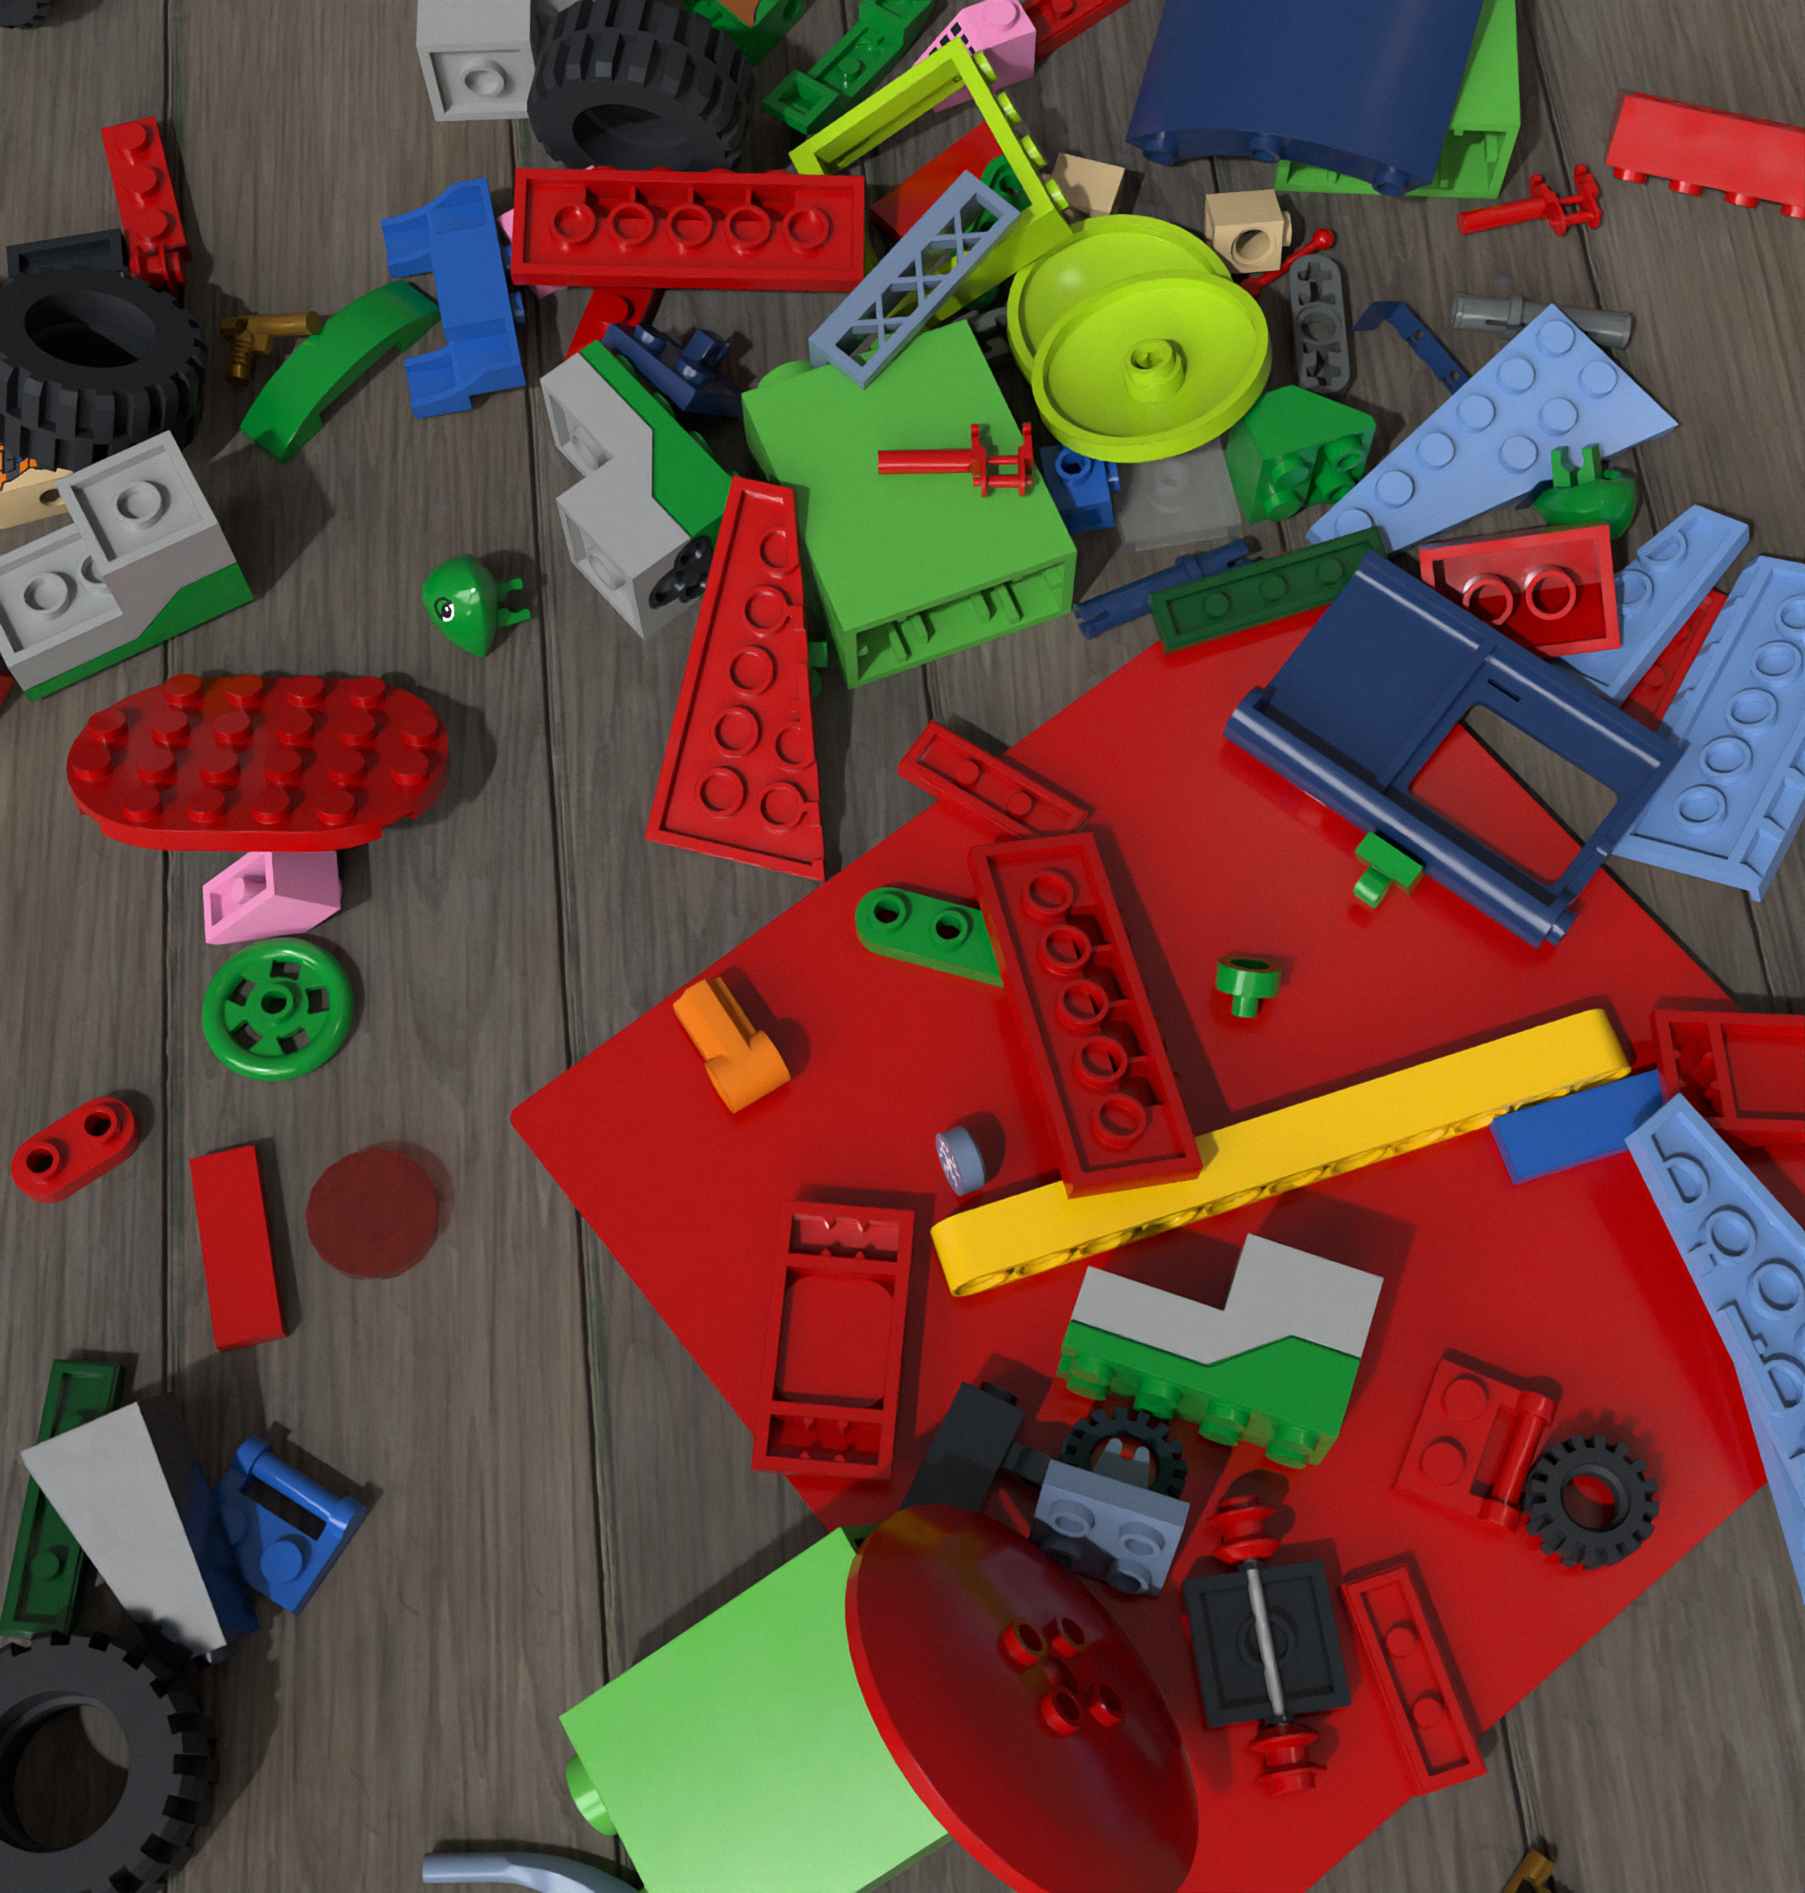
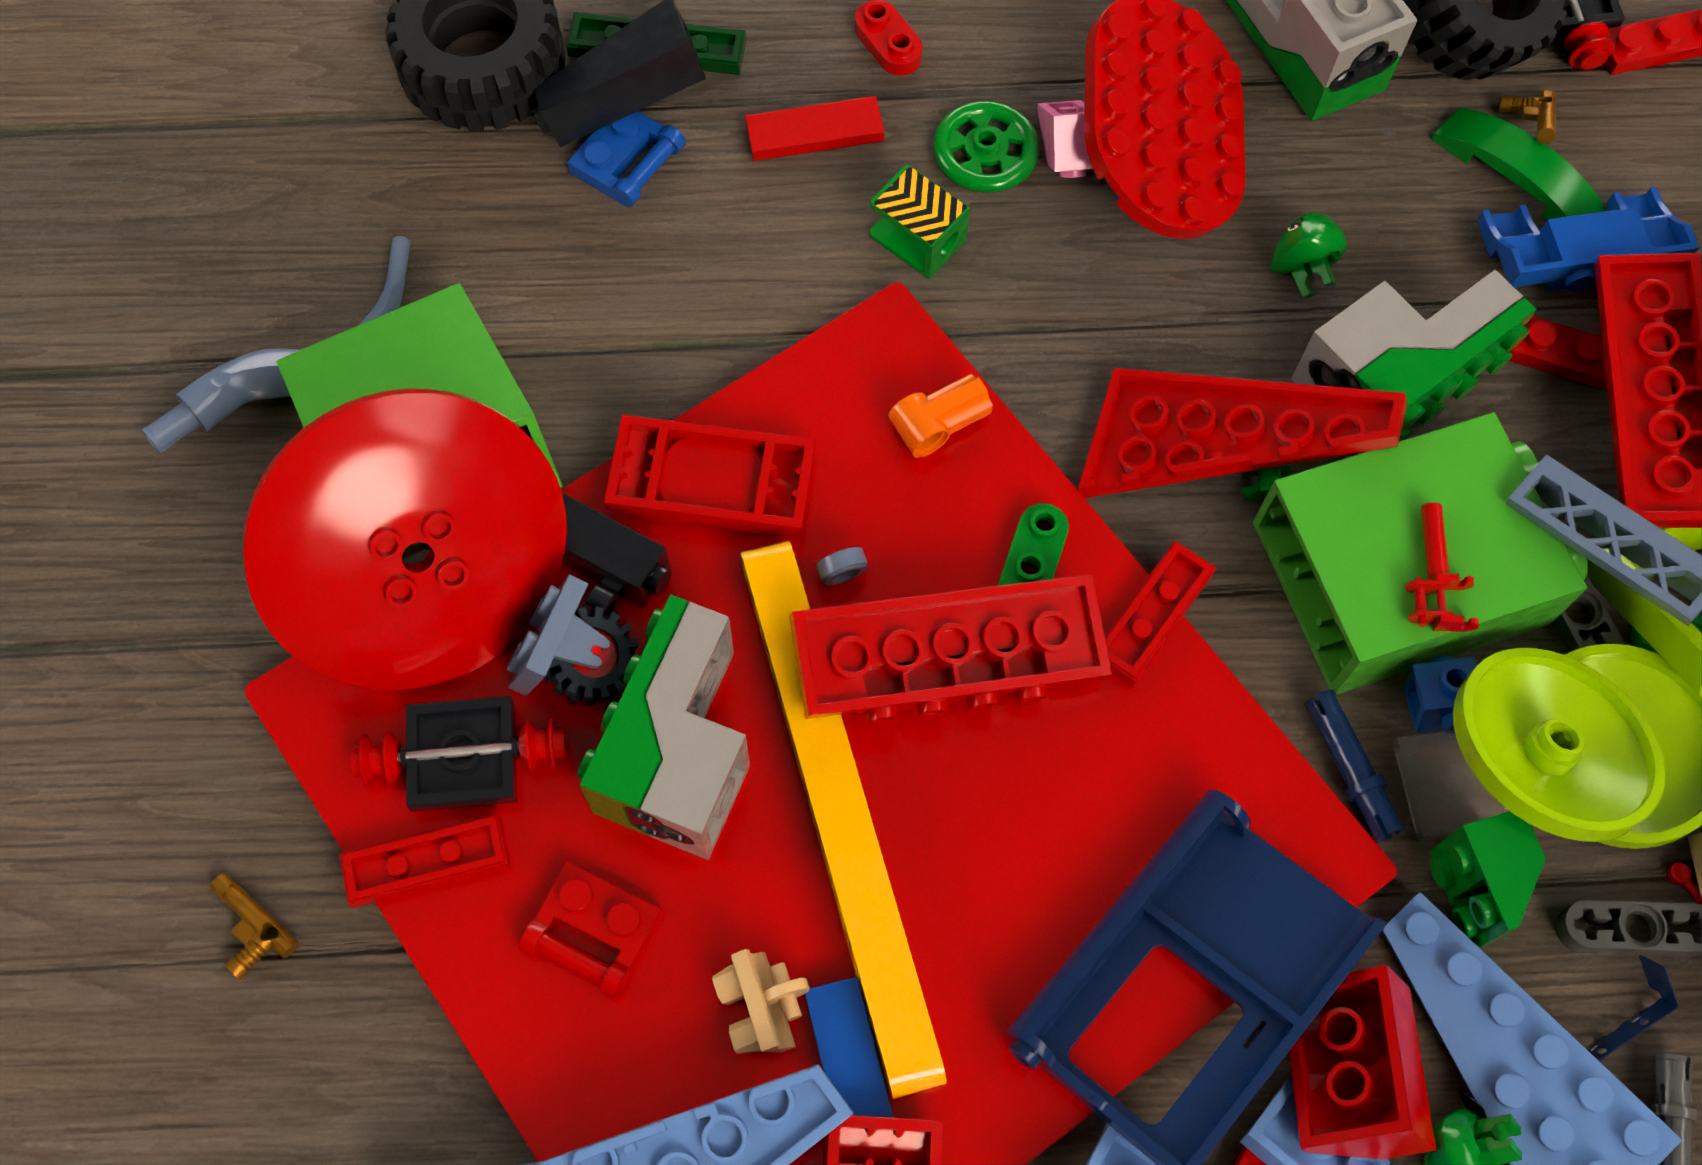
camera: 90 degrees right, 0 degrees up
(373, 1215) = (832, 204): clear red tile -> none
(418, 1086) = (919, 221): none -> piece
(678, 370) = (1531, 386): dark blue hinge -> none
(1248, 981) = (983, 790): green tile -> none
(1258, 592) = (1351, 844): dark green tile -> none
(1385, 868) = (1079, 910): green tile -> none
(1517, 1239) = (769, 1000): none -> tan hips
(1623, 1478) = (512, 986): black tyre -> none

